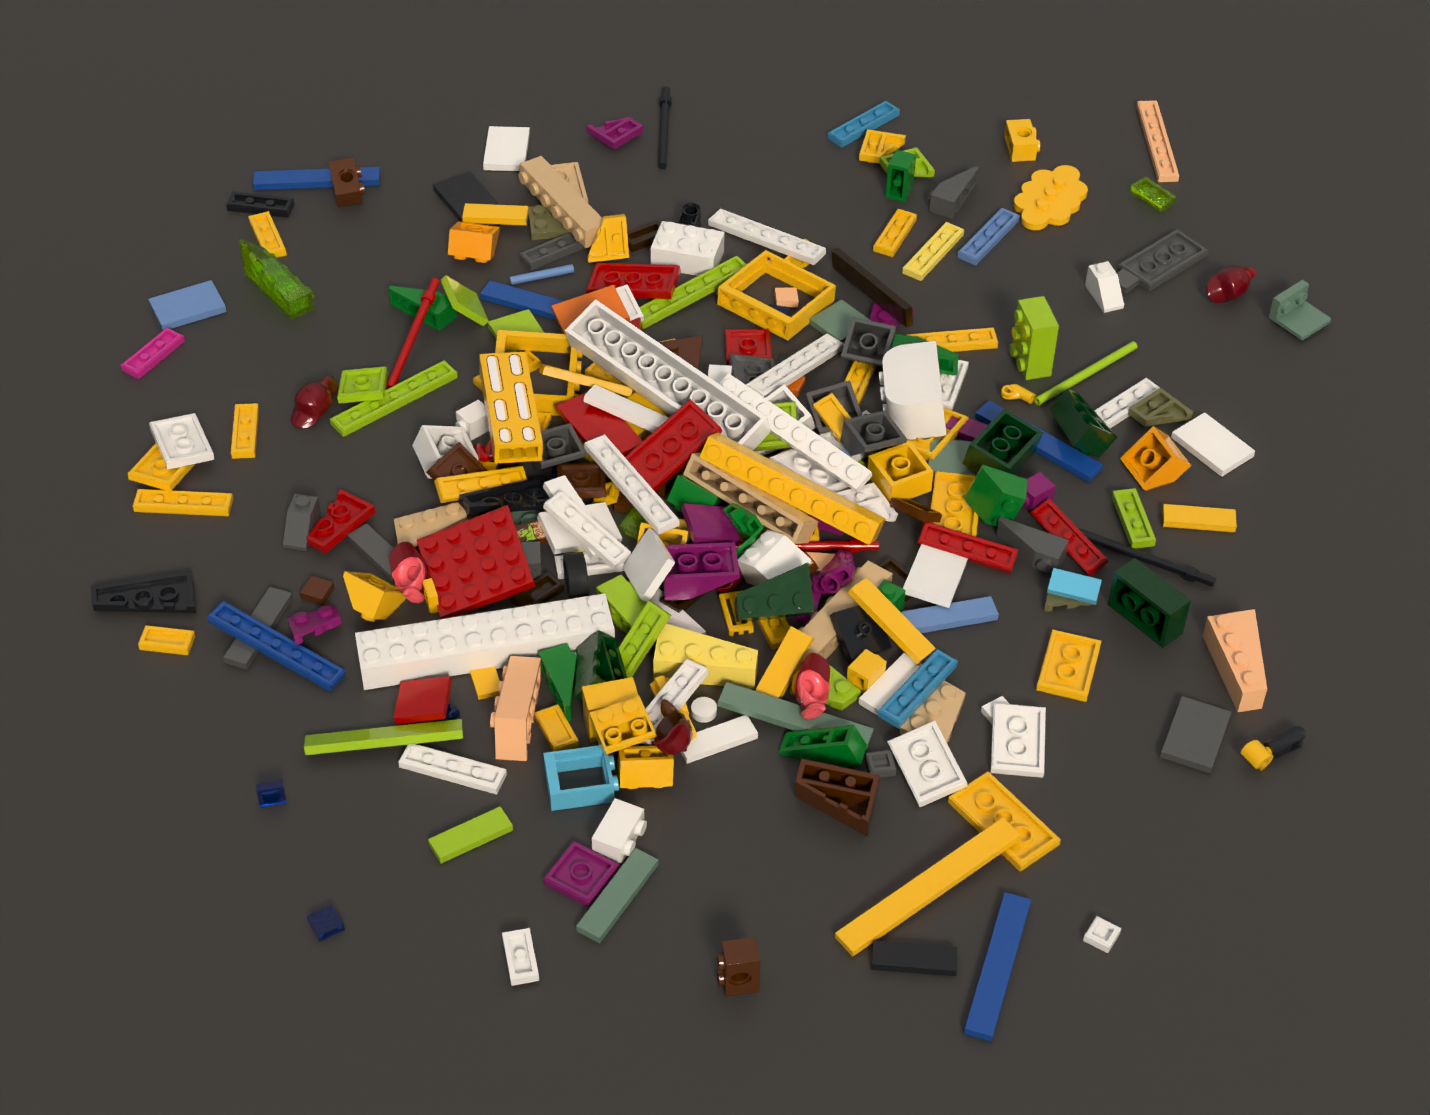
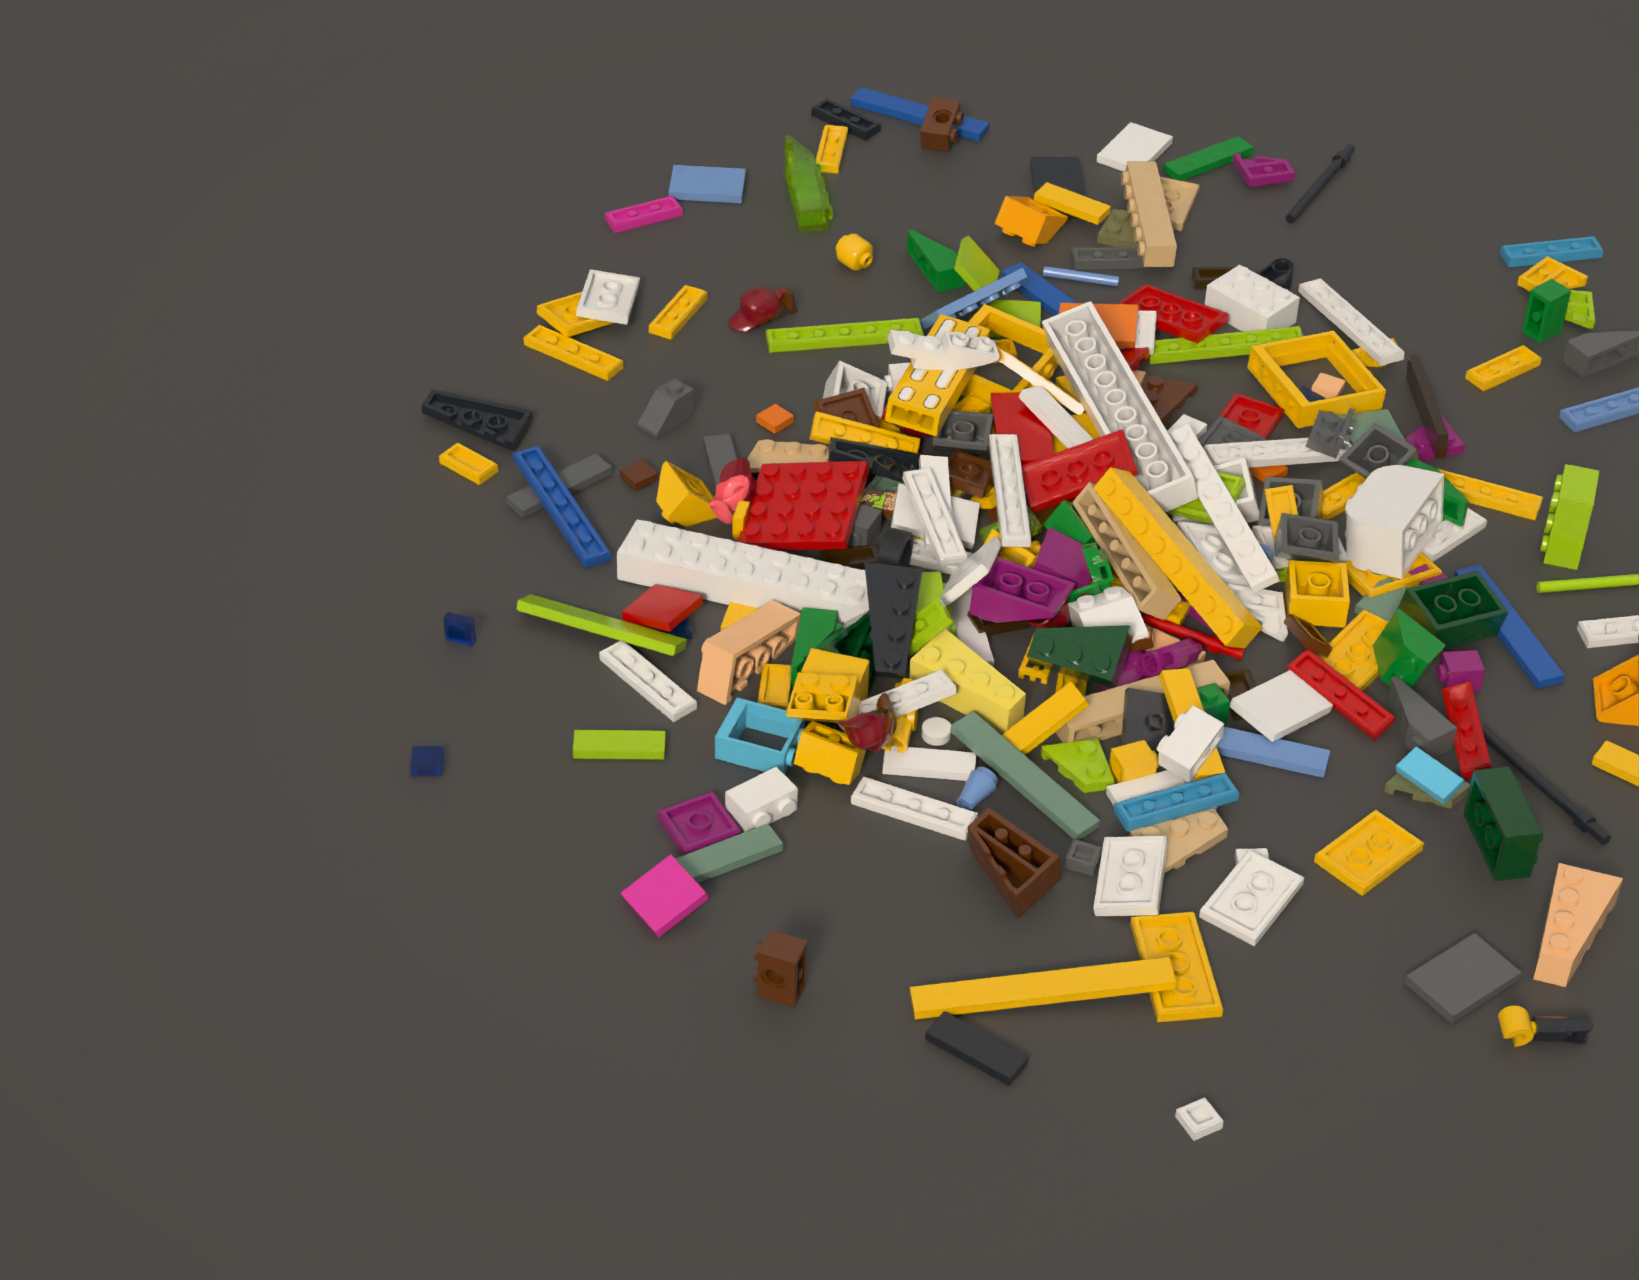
camera: 30 degrees right, 5 degrees down
(316, 622) = (611, 500): magenta wing -> none
(341, 519) = (710, 421): red wing -> none
(355, 321) = (854, 252): none -> yellow head
(362, 384) = (820, 311): lime tile -> none
(391, 494) = (775, 418): none -> orange tile
(427, 299) = (936, 253): red bar -> none
(482, 329) = (977, 298): none -> medium blue plate
(514, 387) = (950, 352): none -> white slope
(520, 956) = (582, 868): white plate -> none
(567, 136) = (1207, 159): none -> green tile
(602, 948) = (664, 895): none -> dark pink tile
(610, 240) = (1173, 265): yellow wing -> none
(620, 630) = (892, 612): none -> black wing
(731, 782) = (913, 808): none -> white tile
(768, 744) = (977, 787): none -> medium blue cone
(812, 686) = (1058, 747): coral hair -> none
(821, 336) = (1330, 433): none -> dark grey bracket
(831, 745) = (1037, 814): green slope -> none
(907, 638) = (1190, 743): none -> white brick
(933, 251) = (1533, 400): light yellow tile -> none
(997, 967) = (1059, 1096): blue tile -> none
(1015, 391) = (1519, 568): yellow arm -> none
(1082, 424) = (1566, 624): dark green wedge -> none
(1133, 518) = (1558, 740): lime plate -> none

